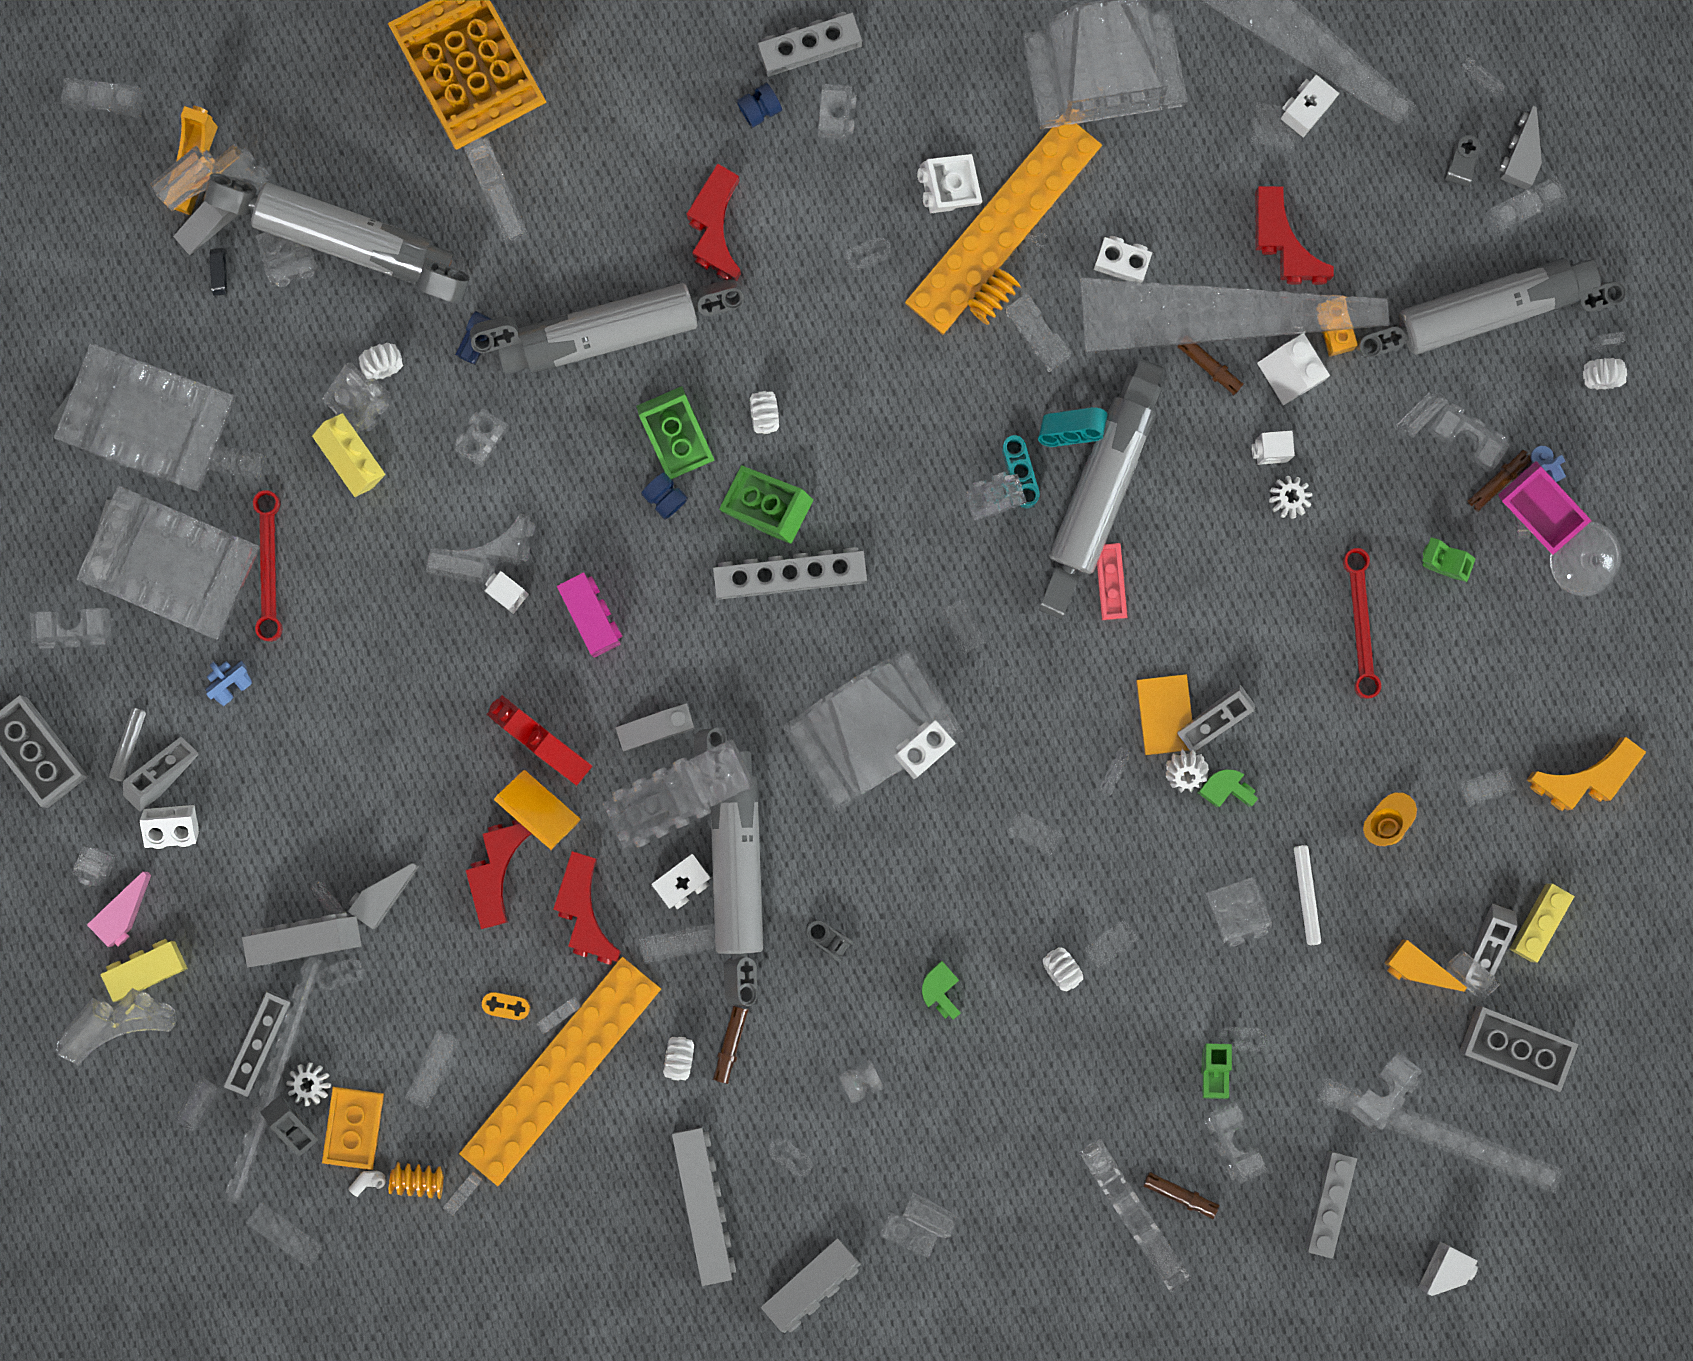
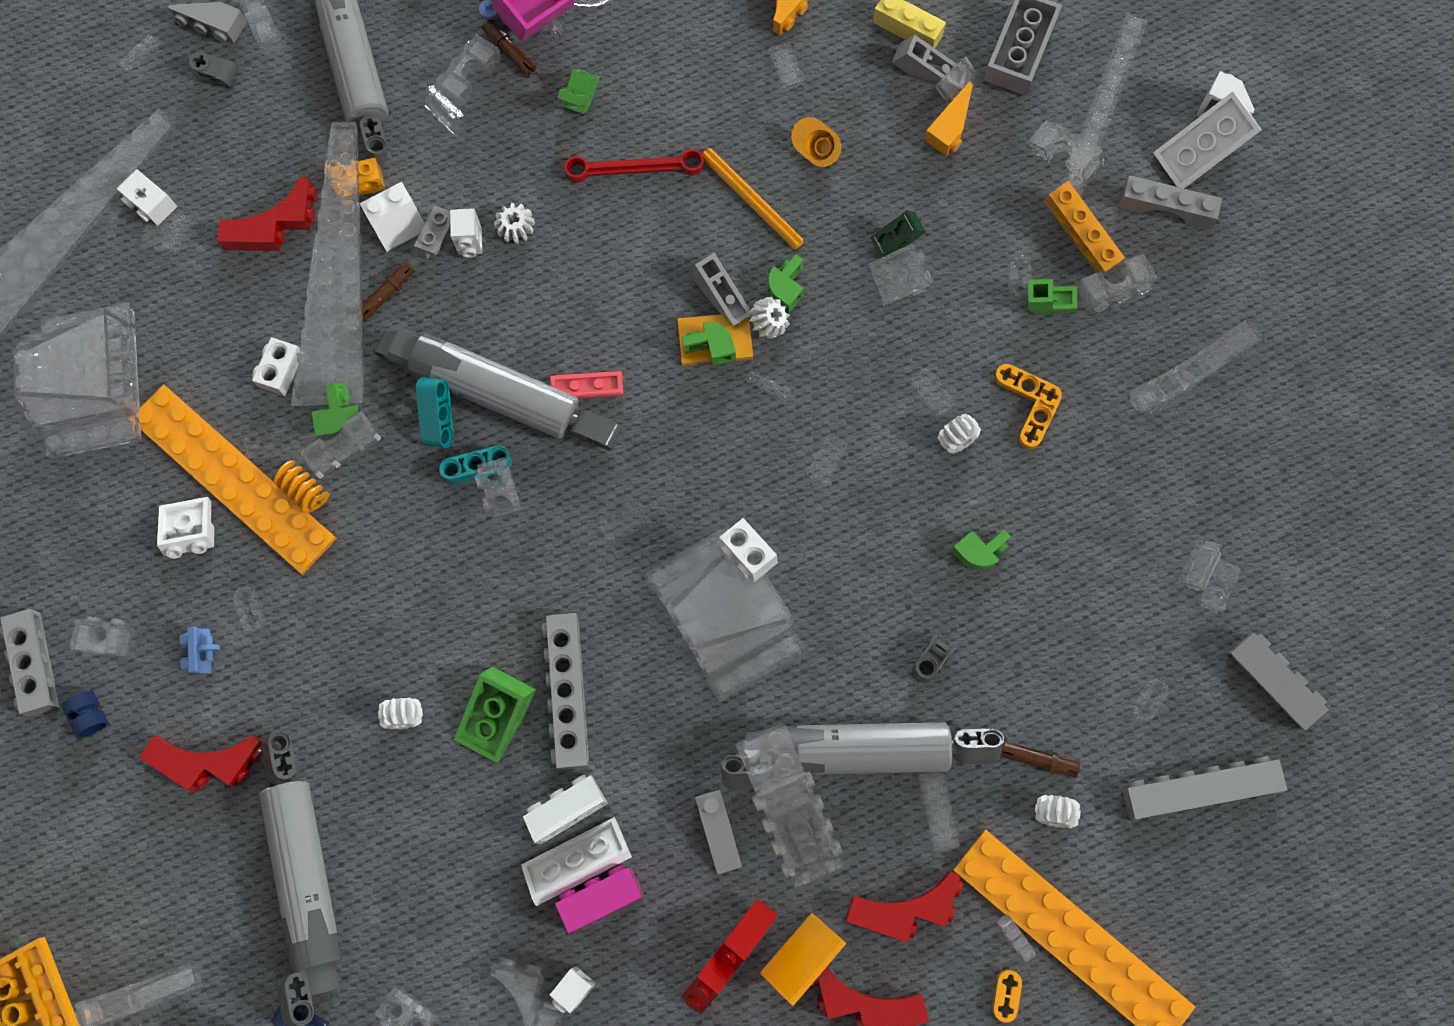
camera: 80 degrees left, 10 degrees down
(625, 590) = (575, 861): none -> white plate
(664, 496) = (482, 816): dark blue wheel -> none
(667, 883) = (863, 800): white brick -> none
(674, 577) = (564, 809): none -> white slope
(675, 433) = (415, 806): bright green slope -> none
(824, 210) = (200, 650): none -> medium blue hips
(861, 1081) = (1073, 628): clear wheel -> none
(1066, 323) = (330, 420): none -> bright green brick
(1100, 1057) = (1040, 404): none -> light orange beam
(1160, 715) = (715, 339): none -> bright green brick
(1181, 1195) = (1171, 325): reddish brown pin -> none
(1274, 414) = (433, 233): none -> light grey bracket
(1283, 907) = (898, 233): none -> dark green piece
(1294, 1108) = (1083, 228): none -> light orange brick
(1307, 895) = (879, 218): white axle -> none
(1327, 751) = (752, 199): none -> light orange axle
(1398, 1245) = (1207, 140): none -> white plate

